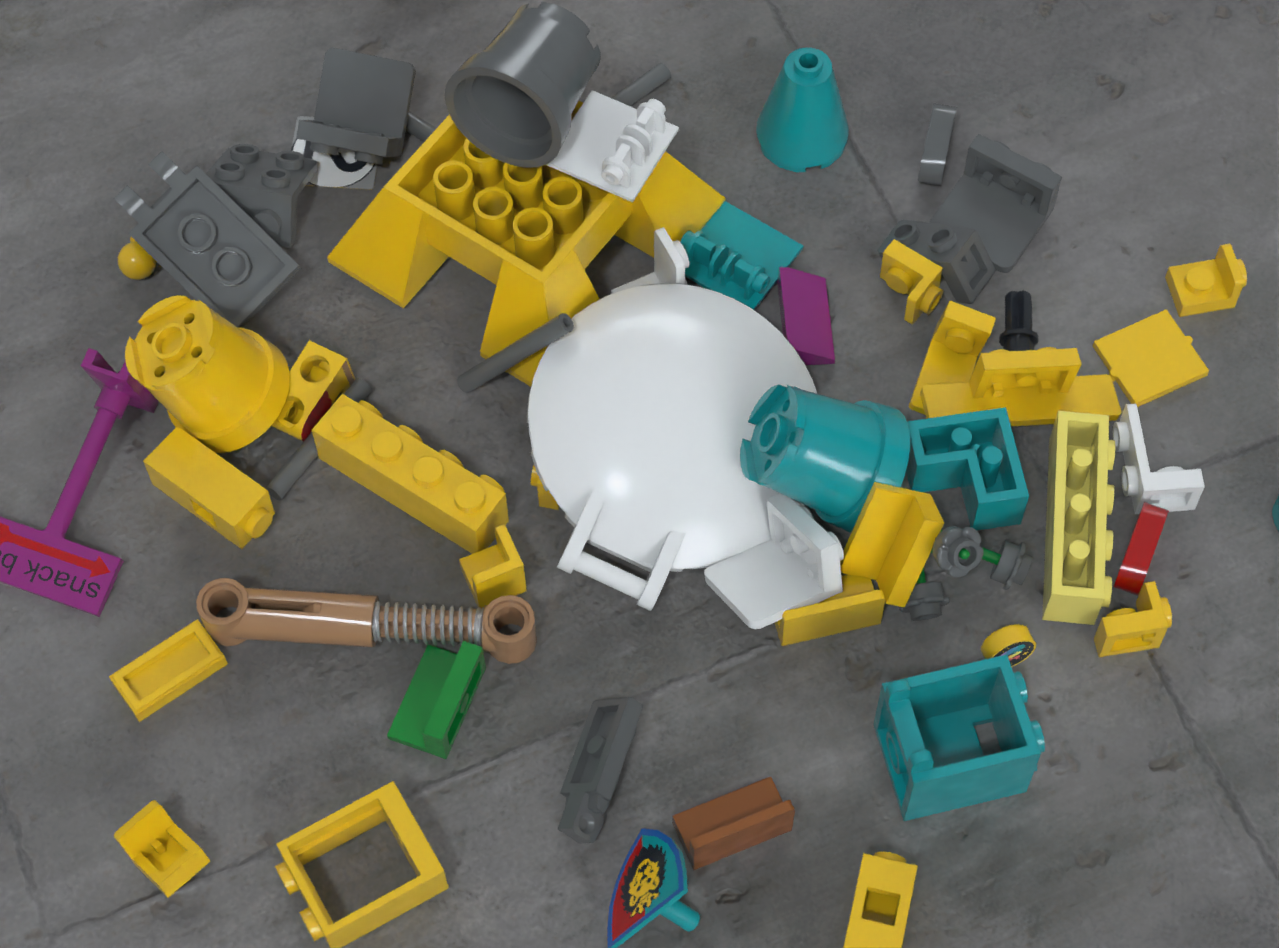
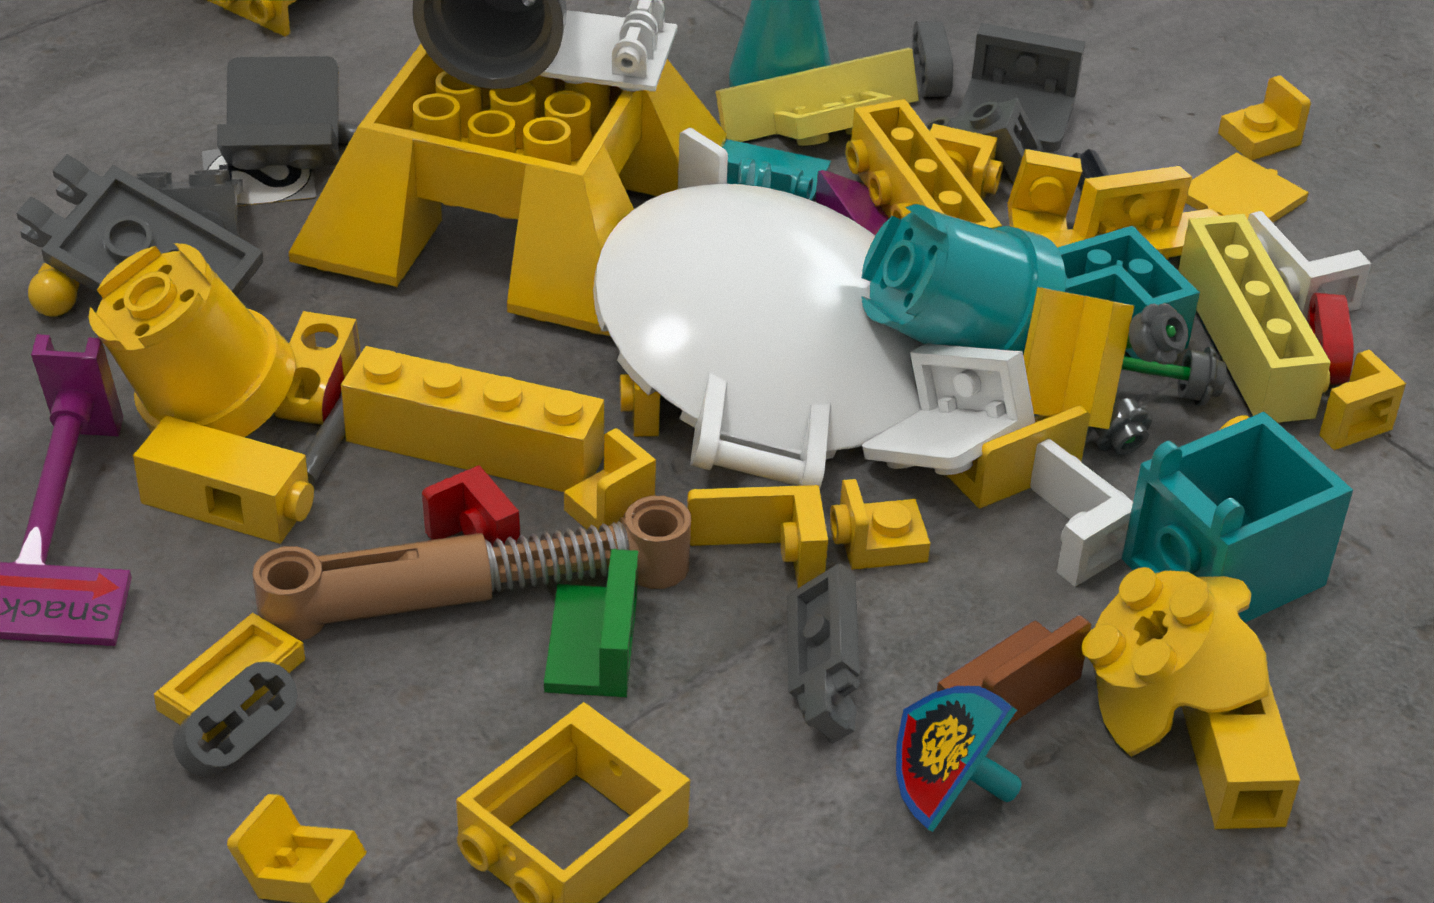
camera: 20 degrees left, 20 degrees down
(164, 727) = (226, 707): none -> dark grey beam
(380, 556) = (470, 505): none -> red bracket
(515, 353) = (558, 277): dark grey piece -> none
(614, 623) = (764, 516): none -> yellow bracket
(688, 655) = (879, 531): none -> yellow bracket
(820, 179) = (816, 100): none -> light yellow bracket
(844, 709) = (1095, 509): none -> white bracket
(845, 850) = (1171, 646): none -> yellow brick
(855, 310) = (908, 165): none -> yellow brick

